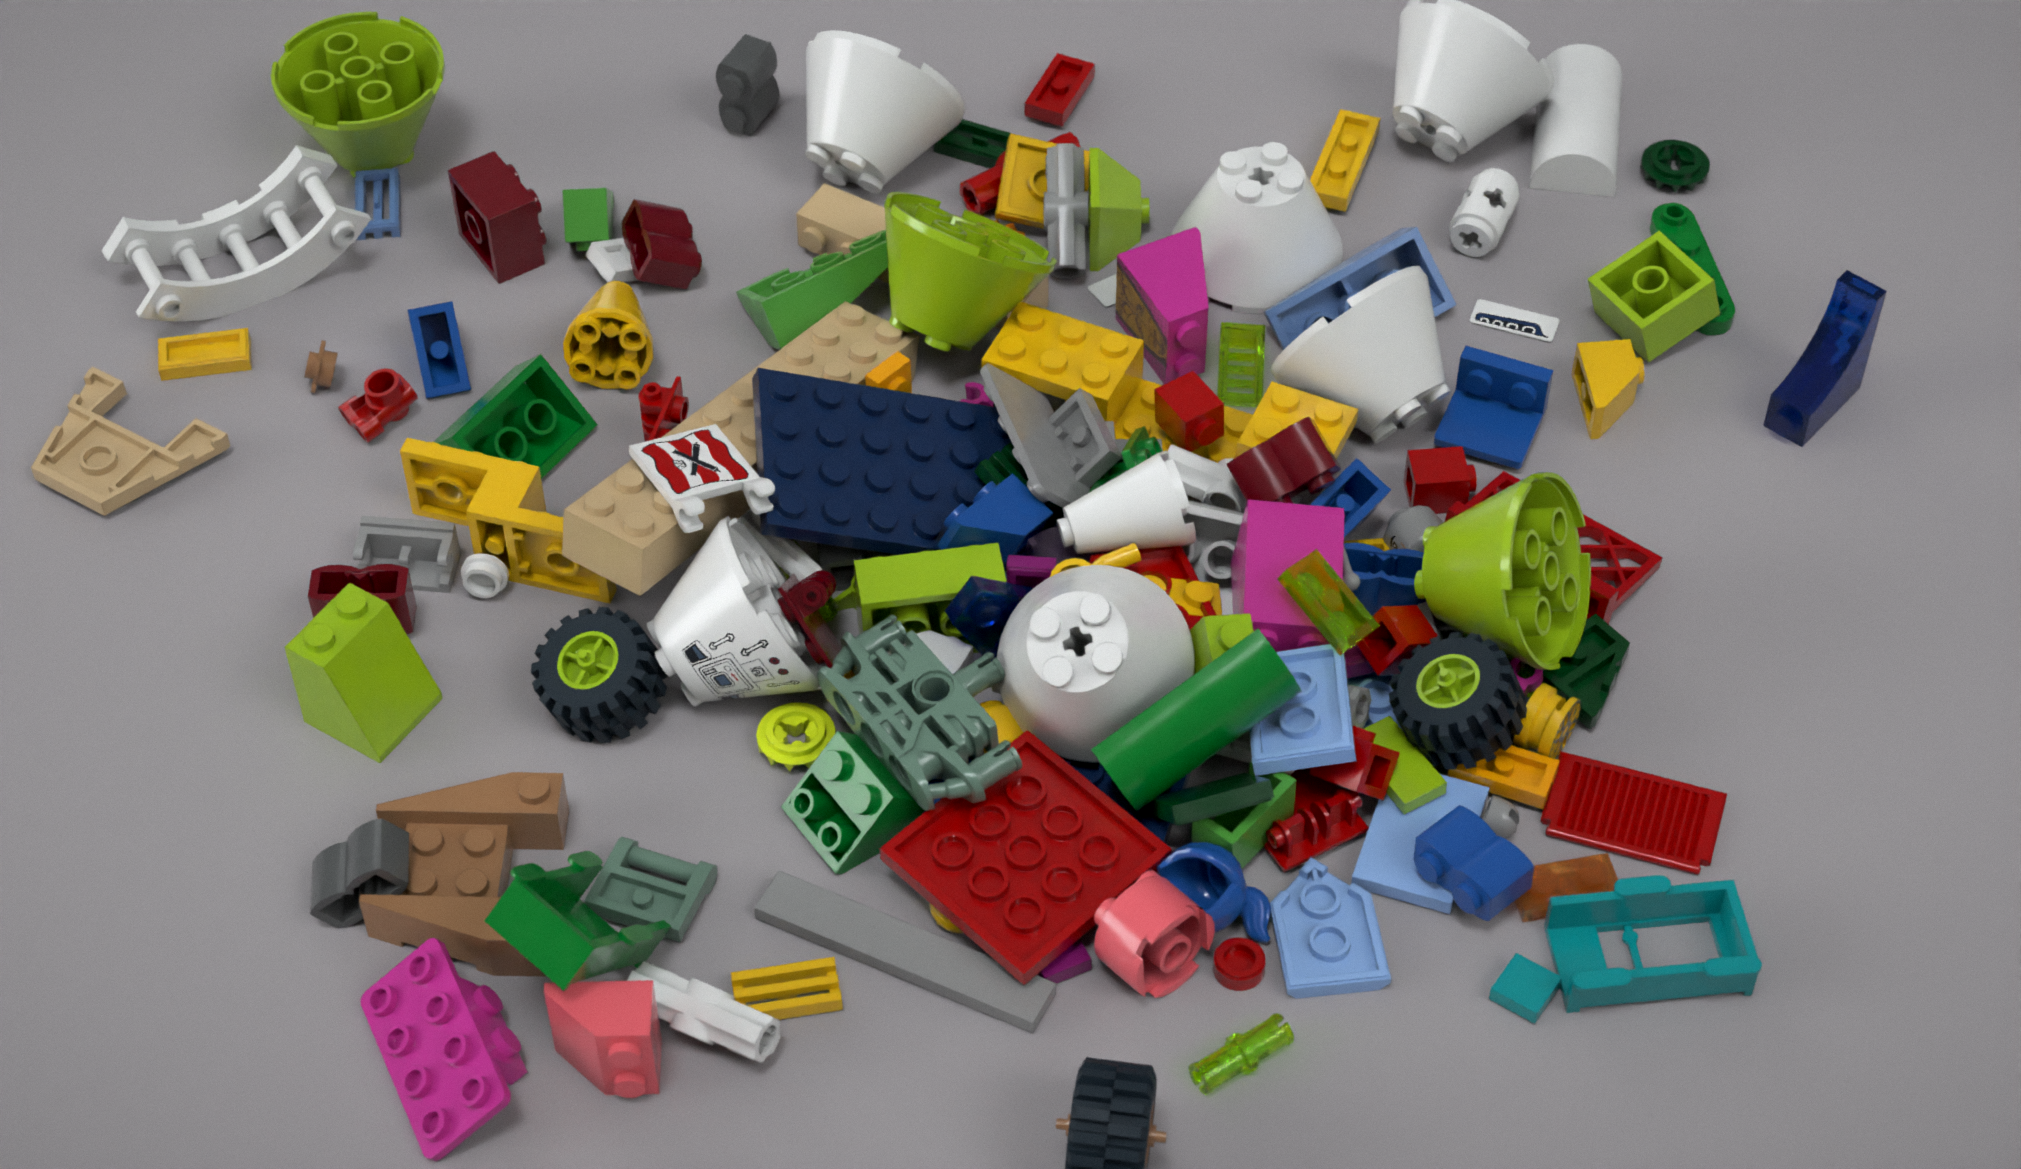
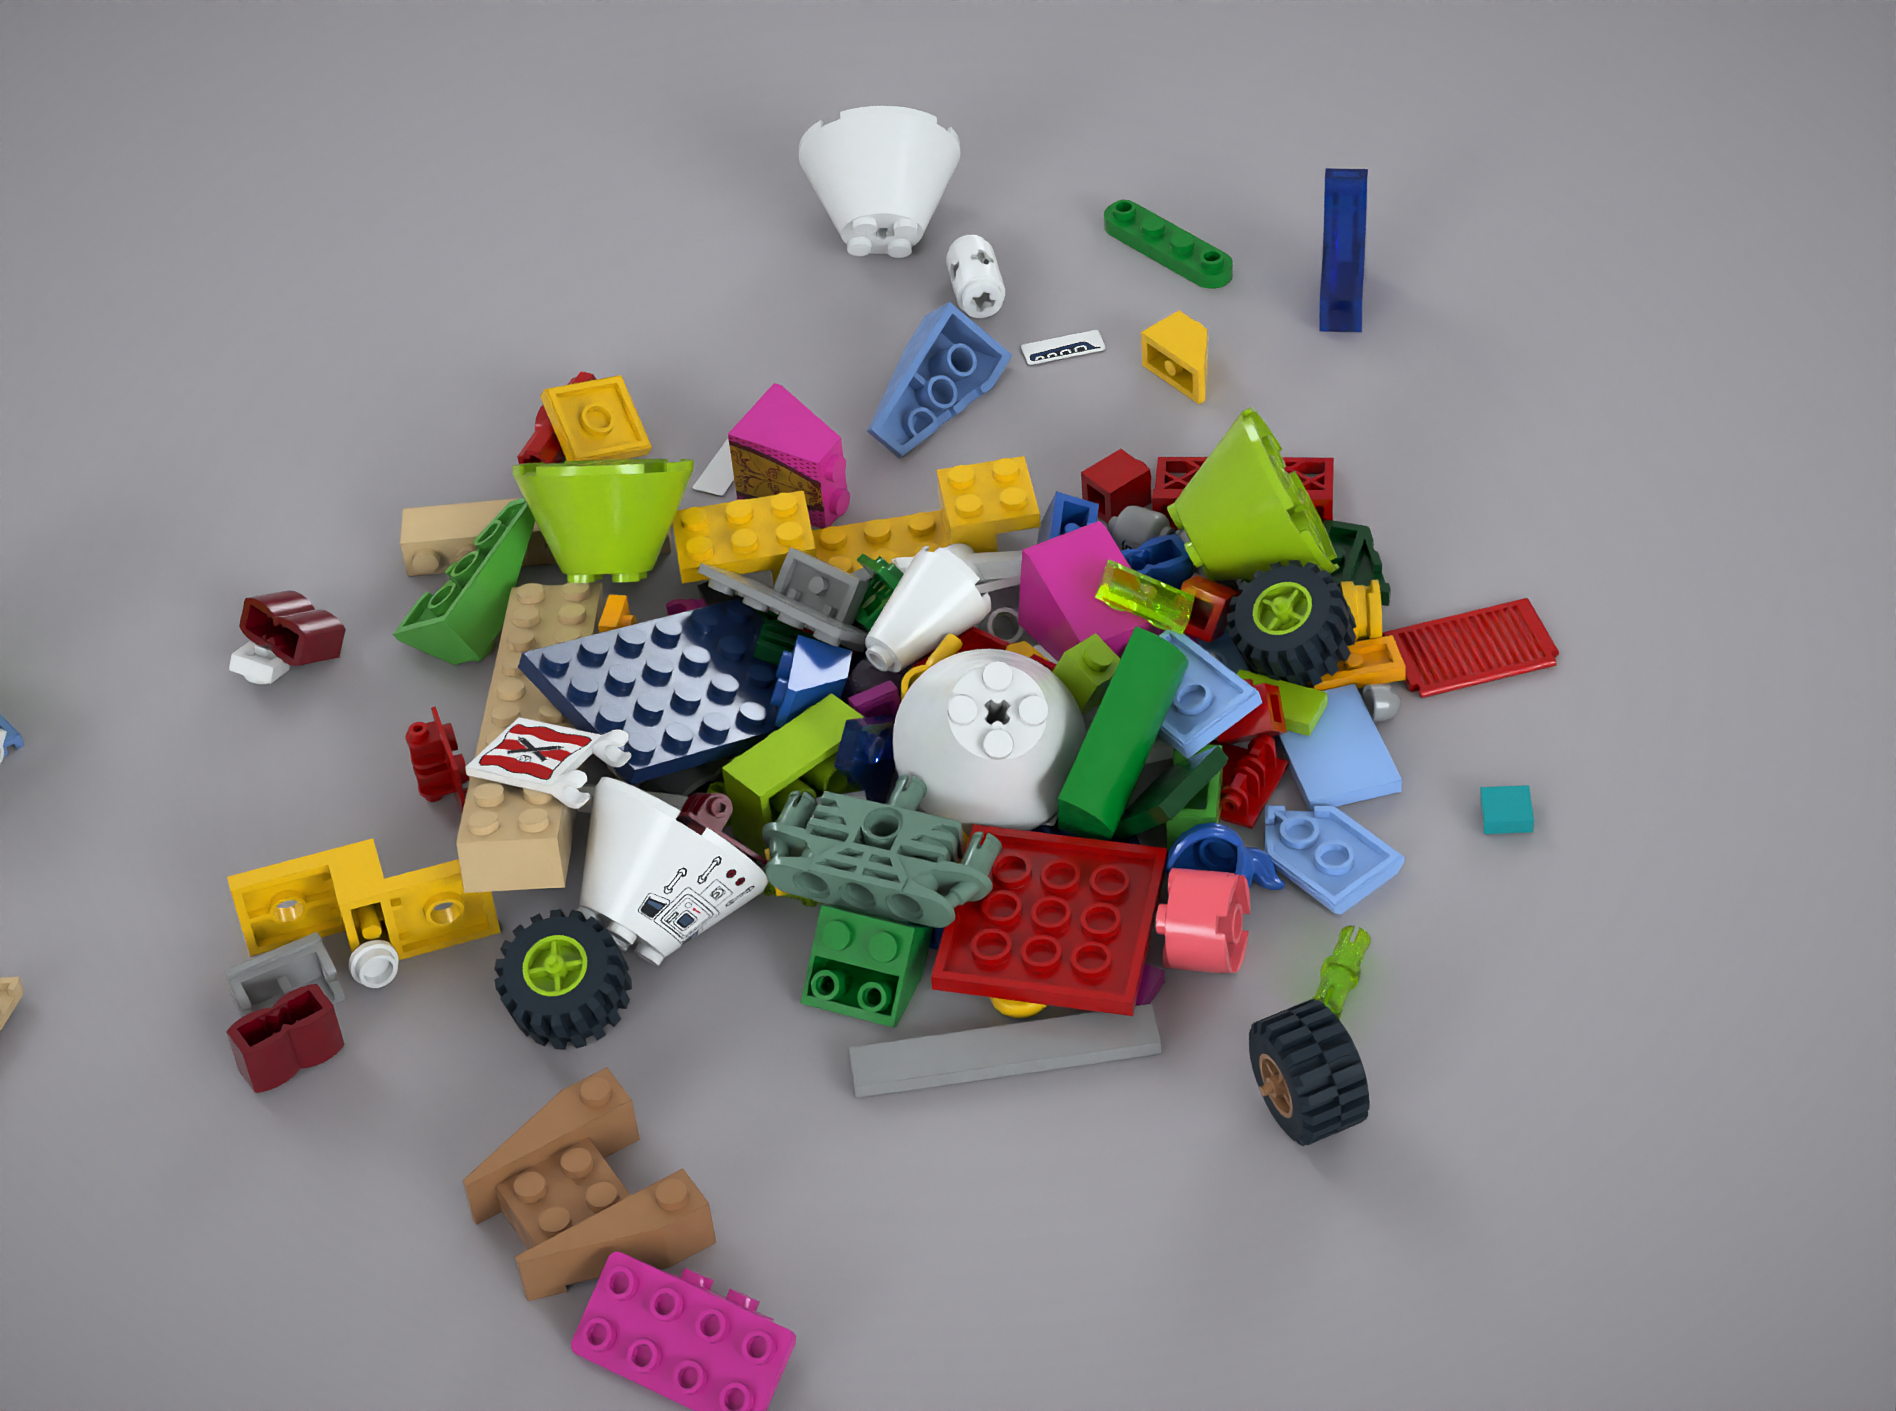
camera: 30 degrees left, 5 degrees down
(321, 367) = (58, 880): medium nougat plate -> none
(360, 674) = (346, 1093): lime slope -> none
(368, 863) = (482, 1250): dark grey brick -> none
(385, 401) = (144, 882): red plate -> none
(439, 349) = (158, 809): blue slope -> none
(497, 216) = (122, 675): dark red brick -> none
(523, 418) = (291, 817): green slope -> none
(562, 934) = (745, 1167): green piece -> none
(587, 216) = (202, 639): bright green slope -> none
(609, 340) = (320, 721): yellow cone -> none
(609, 1033) = (831, 1240): coral slope -> none
(643, 899) = (751, 1124): sand green plate -> none
(710, 1014) = (888, 1183): white piece -> none
(747, 85) = (259, 465): dark grey brick -> none
(785, 984) = (929, 1131): yellow tile -> none
(794, 720) = (751, 931): neon yellow gear -> none
(872, 109) = (400, 424): white cone -> none
(973, 143) = (497, 423): dark green tile -> none
(1059, 89) = (534, 348): red plate -> none
(1066, 210) = (631, 426): light grey piece -> none
(1113, 209) = (667, 413): lime slope -> none
(1189, 412) = (886, 526): red brick -> none
(1239, 964) = (1277, 912): red tile -> none
(1240, 337) = (876, 457): clear neon green slope -> none
(1261, 229) = (816, 356): white cone -> none
(1286, 464) = (1010, 523): dark red brick -> none
(1344, 158) = (823, 292): yellow plate -> none
(1374, 355) = (1004, 411): white cone -> none
(1473, 863) = (1399, 737): blue brick -> none
(1495, 407) = (1113, 410): blue bracket -> none
(1565, 878) = (1471, 725): clear orange plate -> none
(1578, 123) = (993, 186): white brick -> none
(1640, 903) = (1548, 698): teal piece -> none
(1654, 296) = (1167, 270): lime brick -> none
(1691, 163) = (1099, 172): dark green gear -> none

